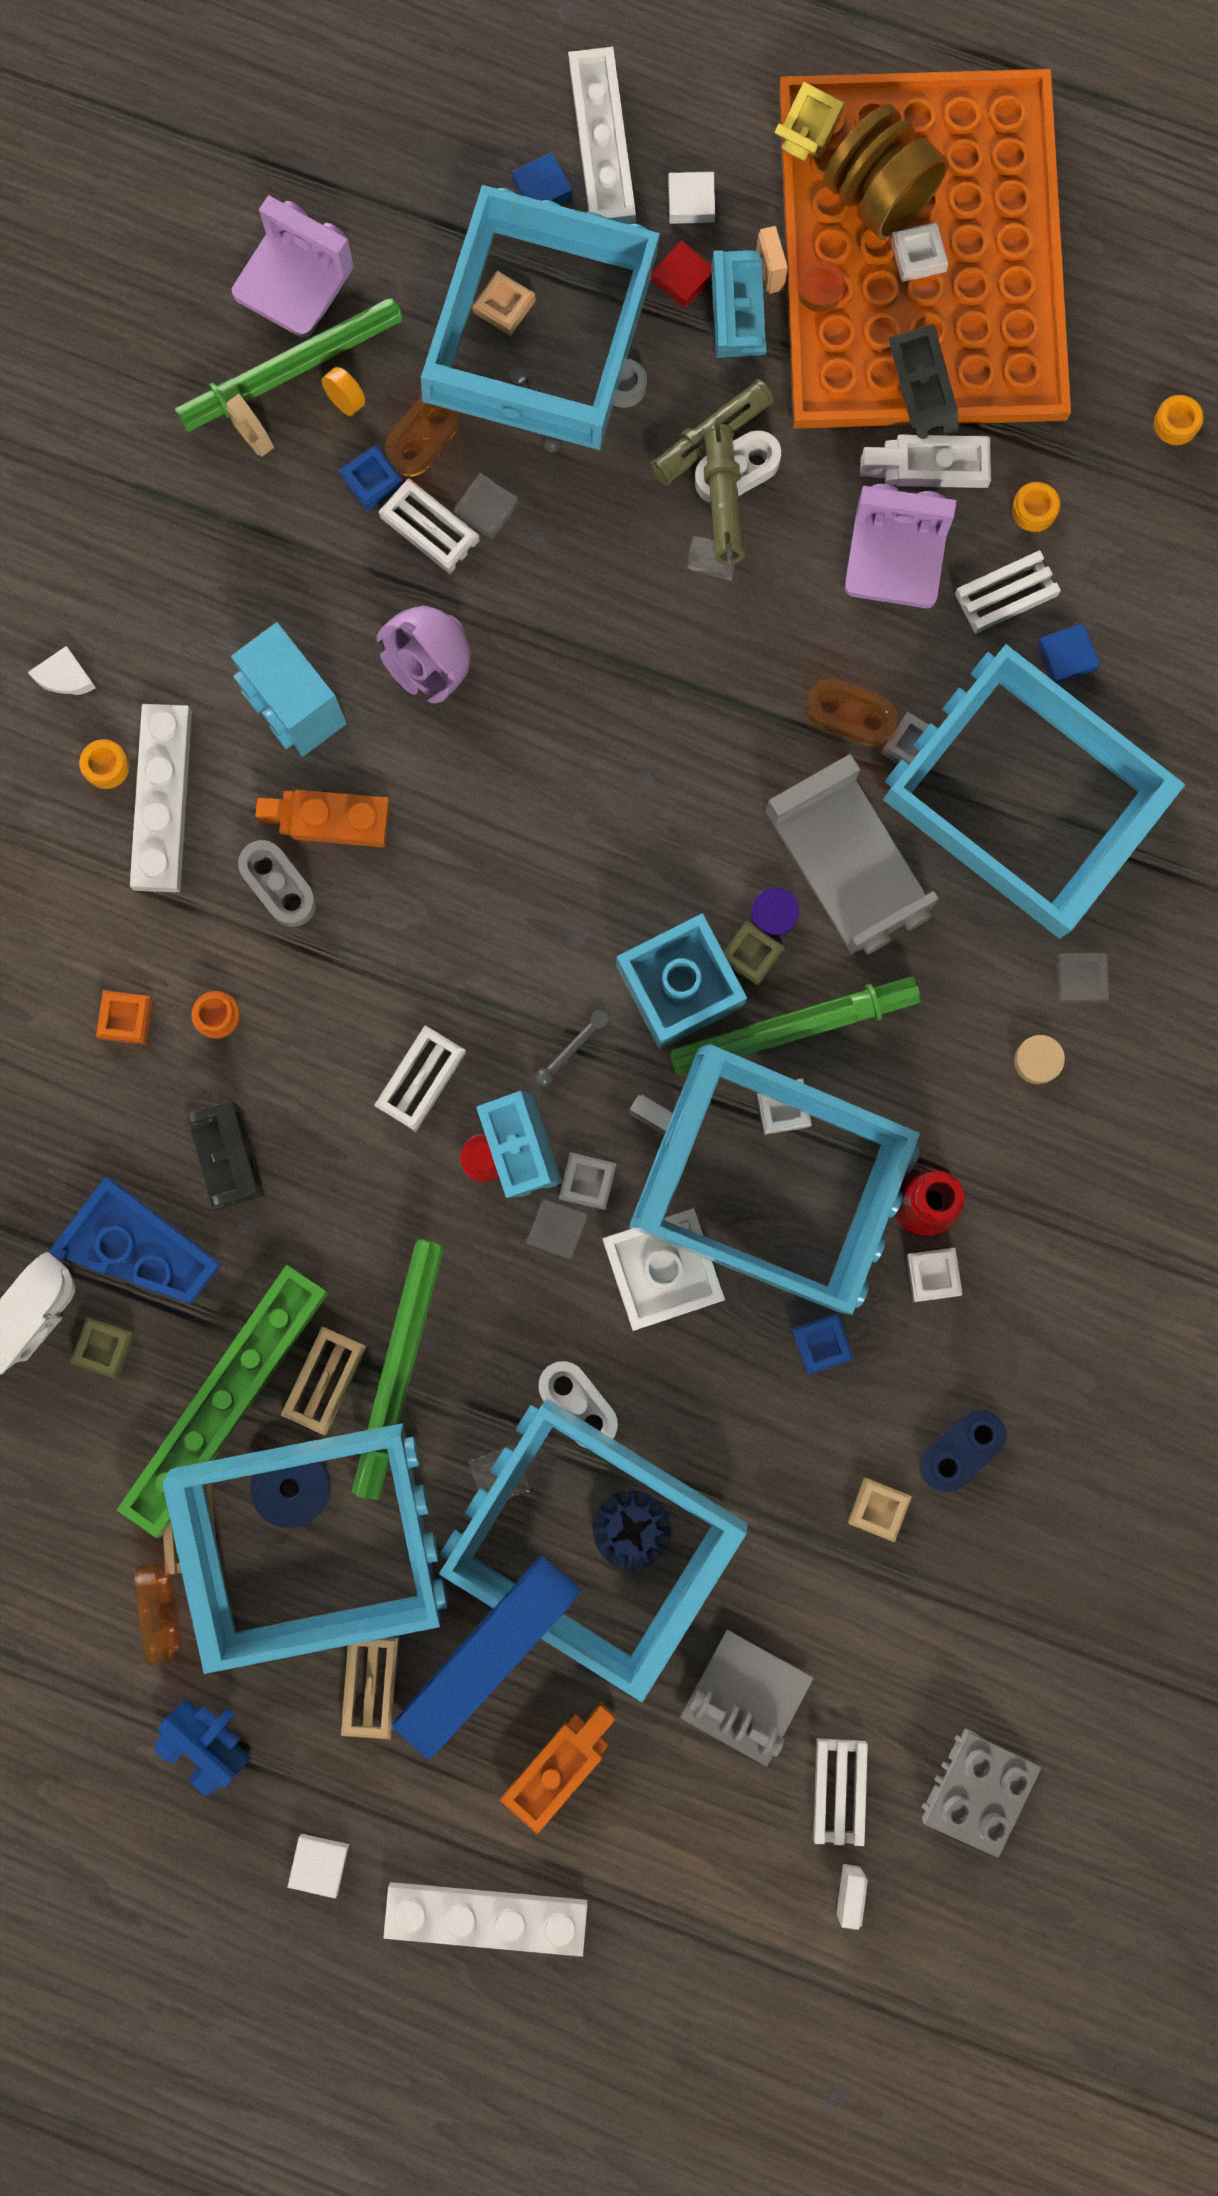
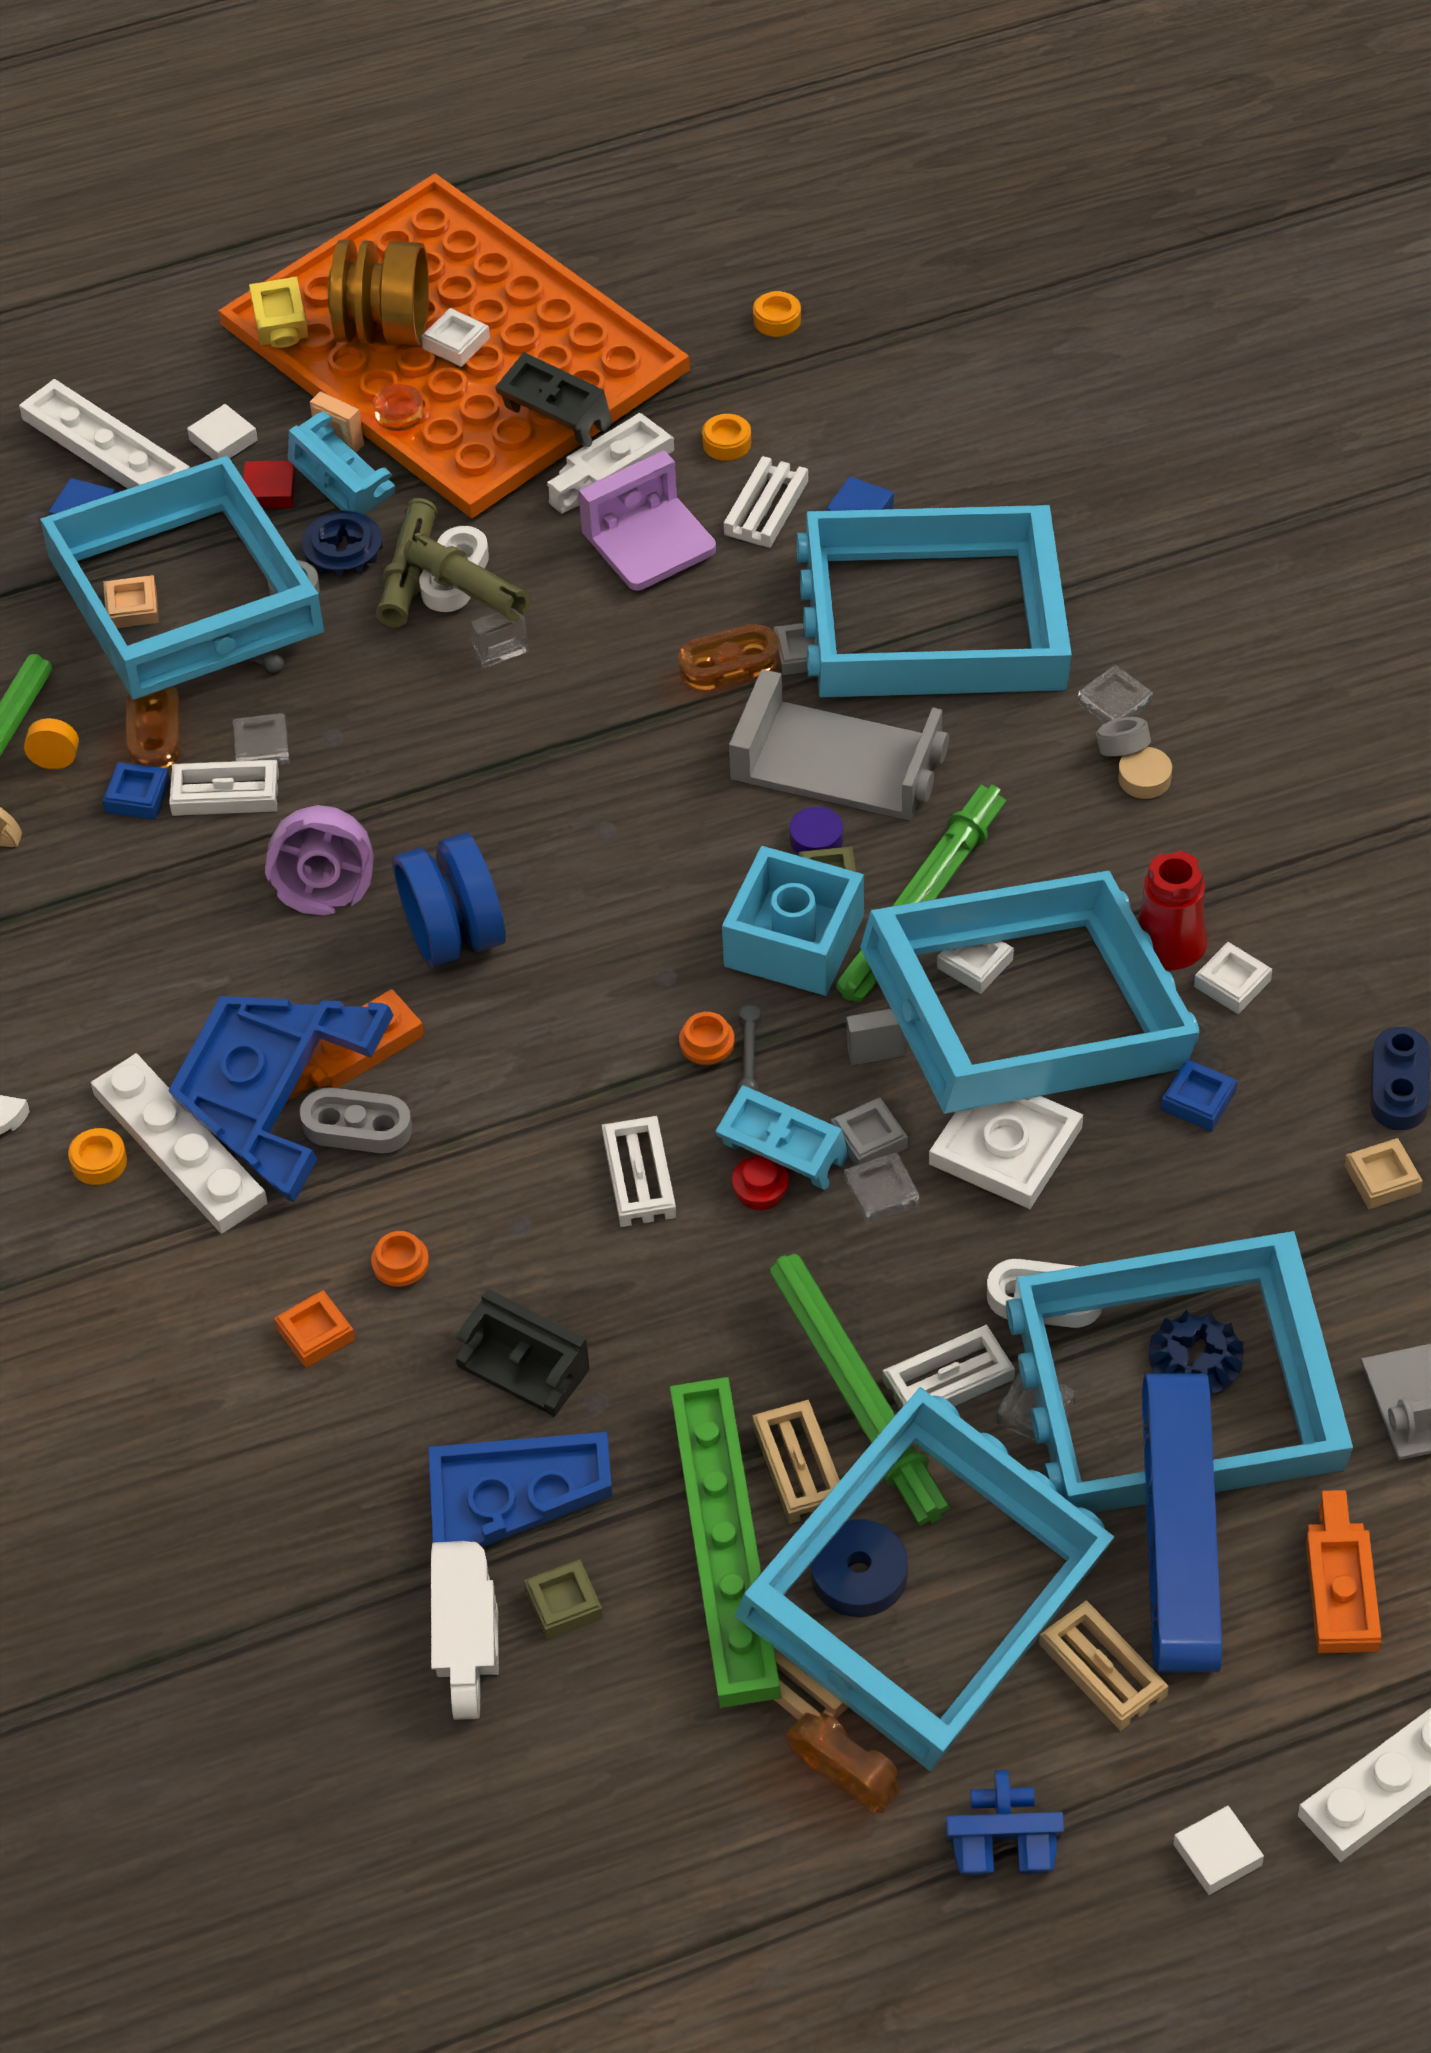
camera: 40 degrees left, 30 degrees down
(232, 790) = (249, 1066): none -> blue wing
(286, 685) = (223, 950): medium azure brick -> none
(430, 1392) = (956, 1381): none -> white tile
(468, 769) = (449, 899): none -> blue wheel
(551, 1017) = (706, 1038): none -> orange plate
(685, 355) = (326, 533): none -> dark blue gear
(1050, 1020) = (1123, 736): none -> light grey tile

